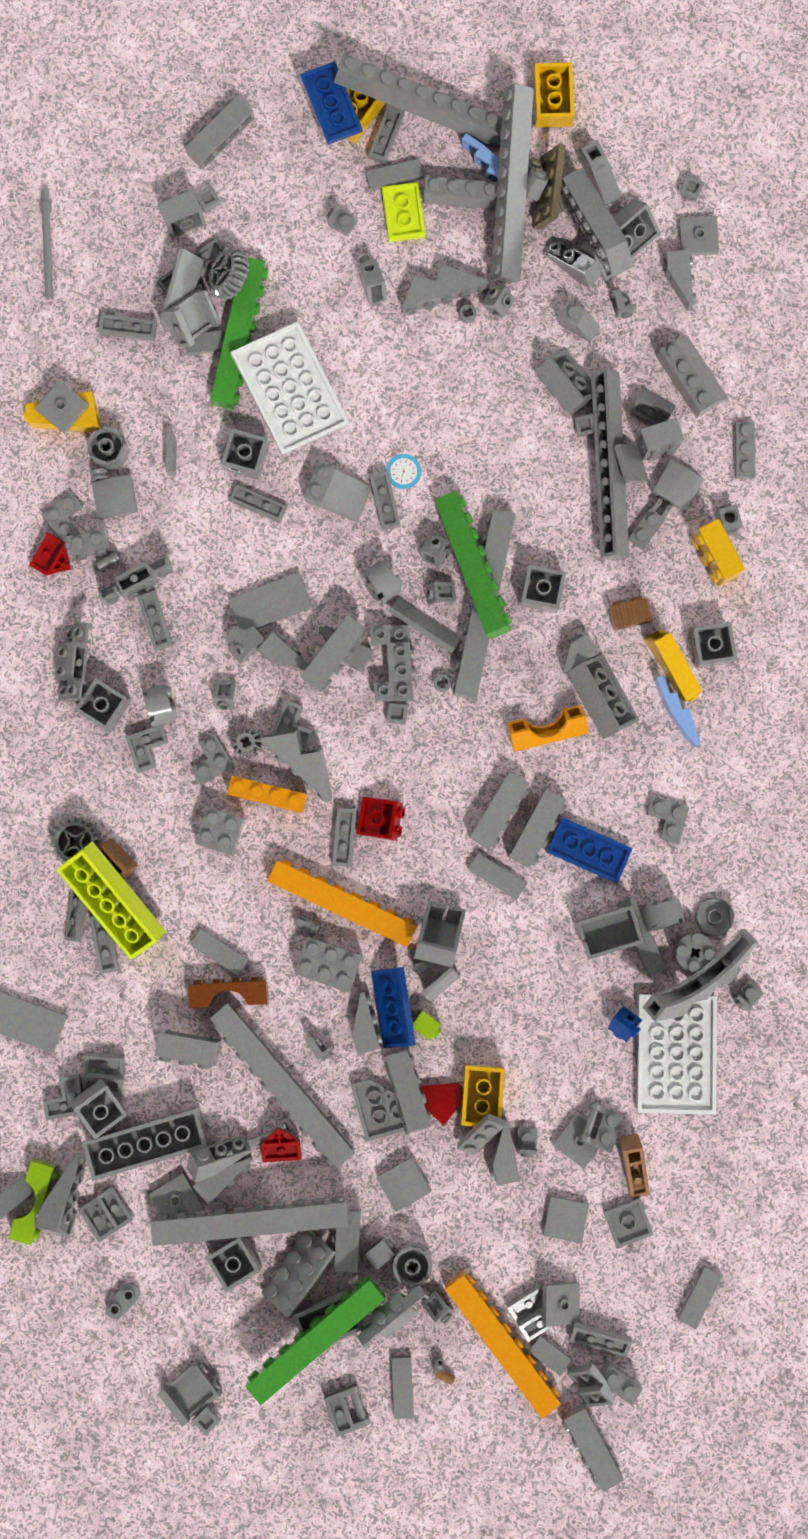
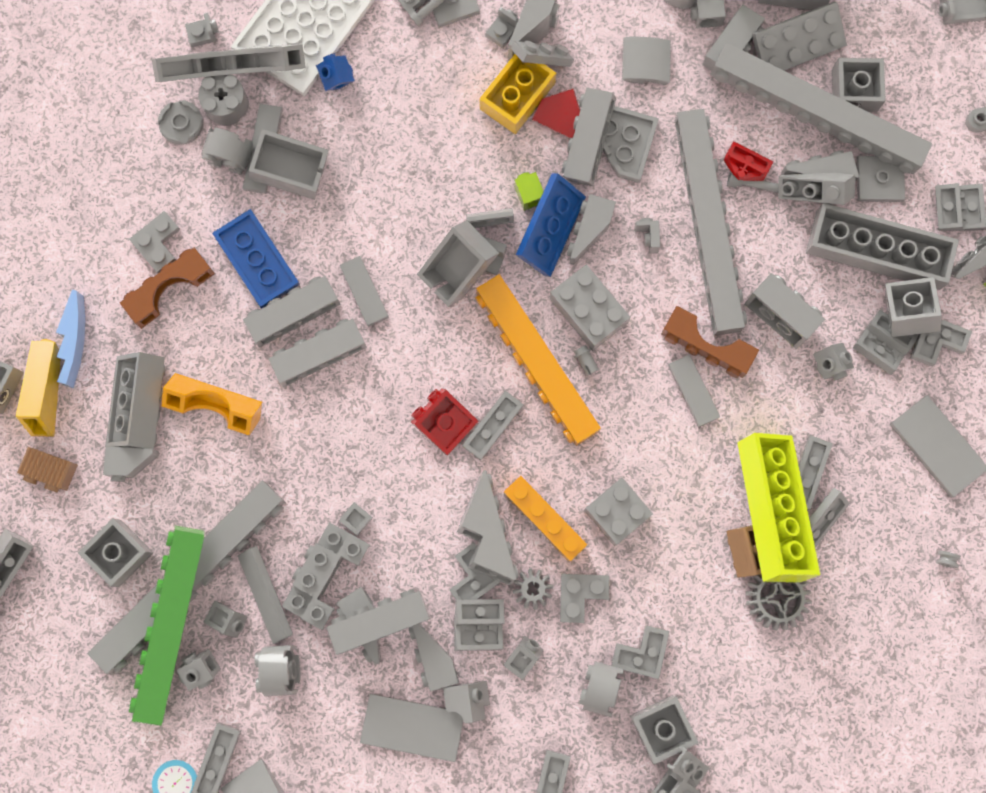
camera: 145 degrees left, 5 degrees down
(131, 1034) = (834, 361): none -> light grey brick
(268, 696) = (478, 625): none -> light grey slope
(437, 680) = (290, 529): light grey bush -> none
(645, 766) = (143, 303): none -> dark orange arch

